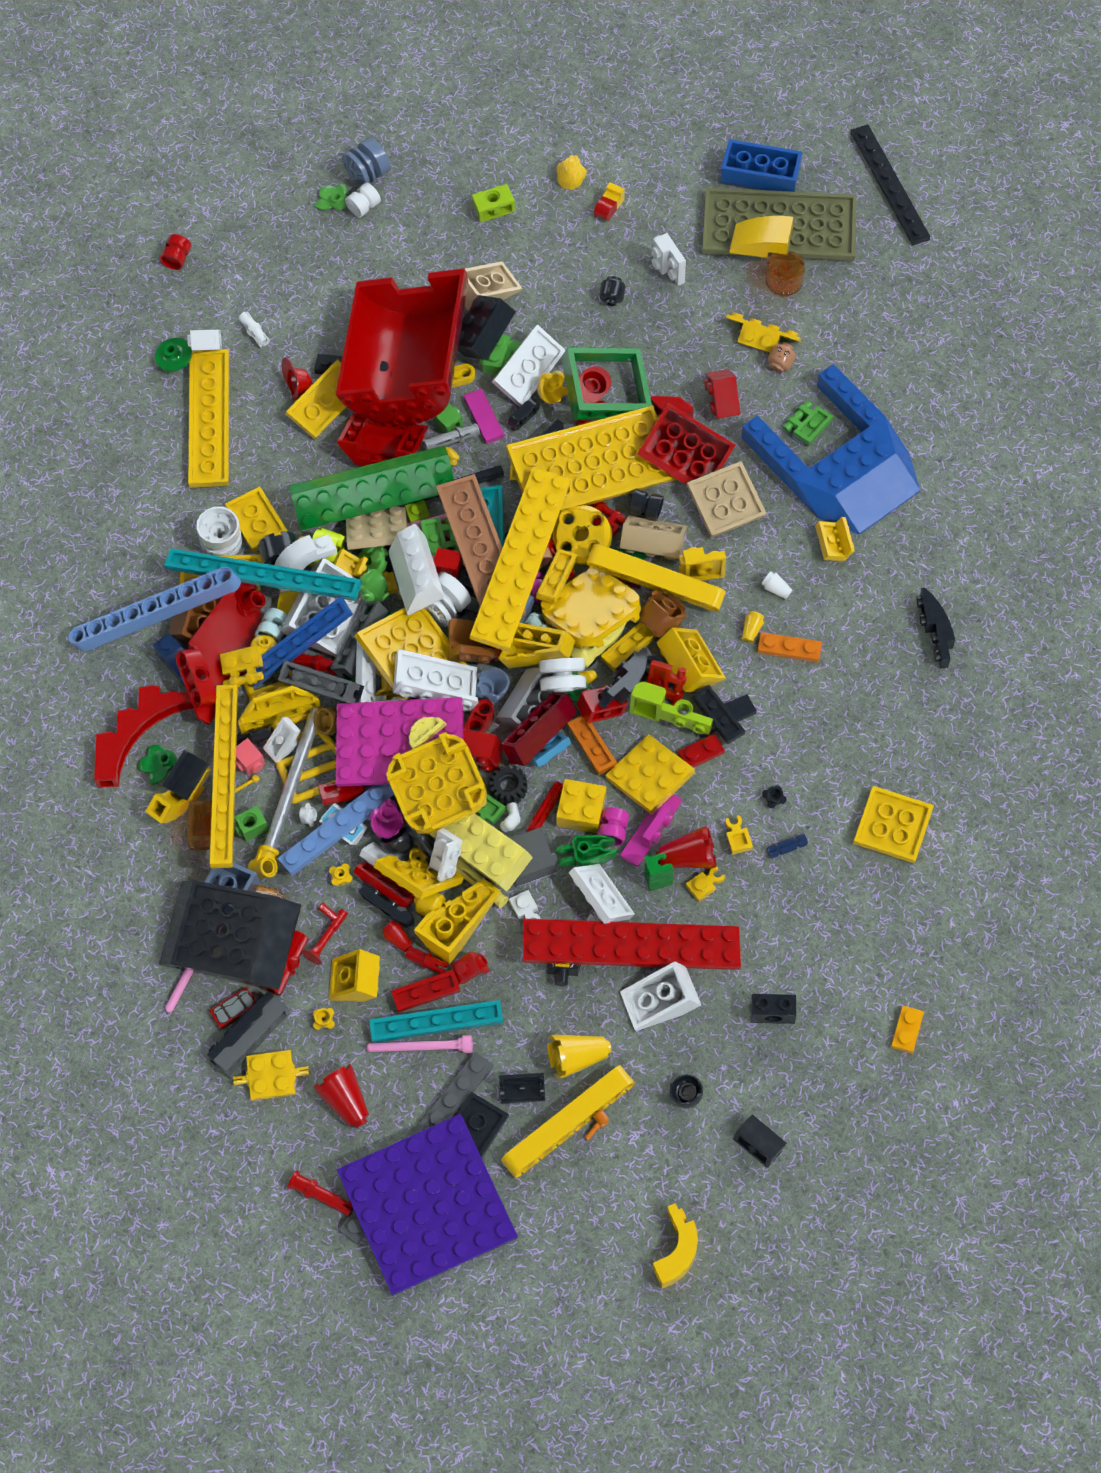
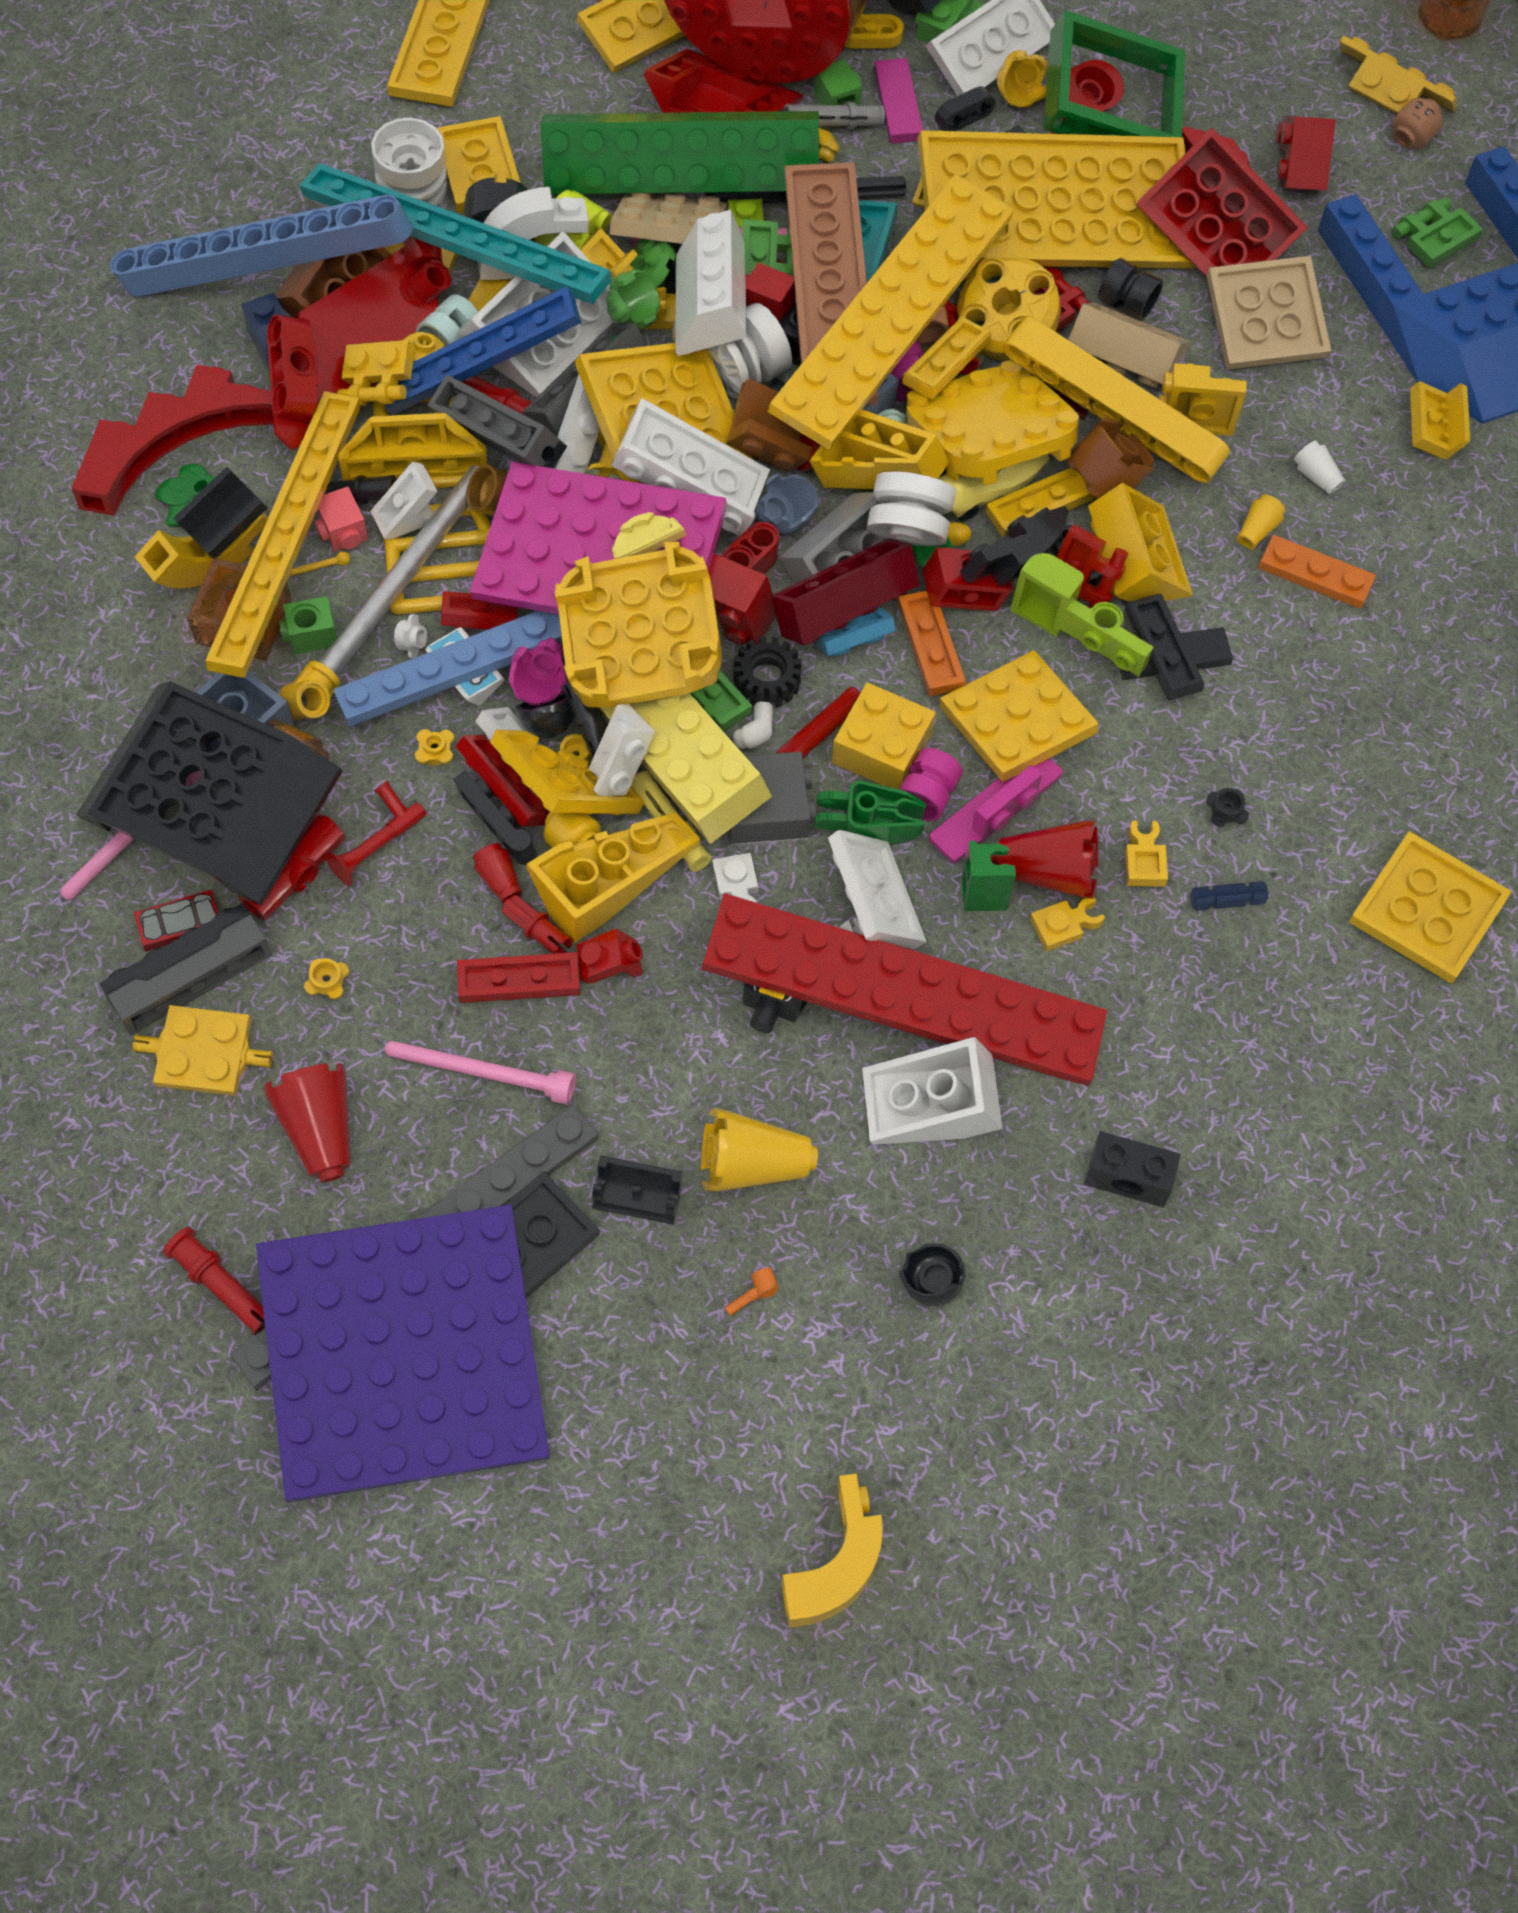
camera: 10 degrees right, 0 degrees up
(354, 977) = (403, 920): yellow slope -> none
(436, 1021) = (520, 1033): teal plate -> none
(566, 1121) = (699, 1270): yellow beam -> none
(702, 751) = (1120, 701): red plate -> none
(759, 1141) = (1044, 1401): black hinge -> none
(907, 1029) = (1370, 1272): light orange plate -> none

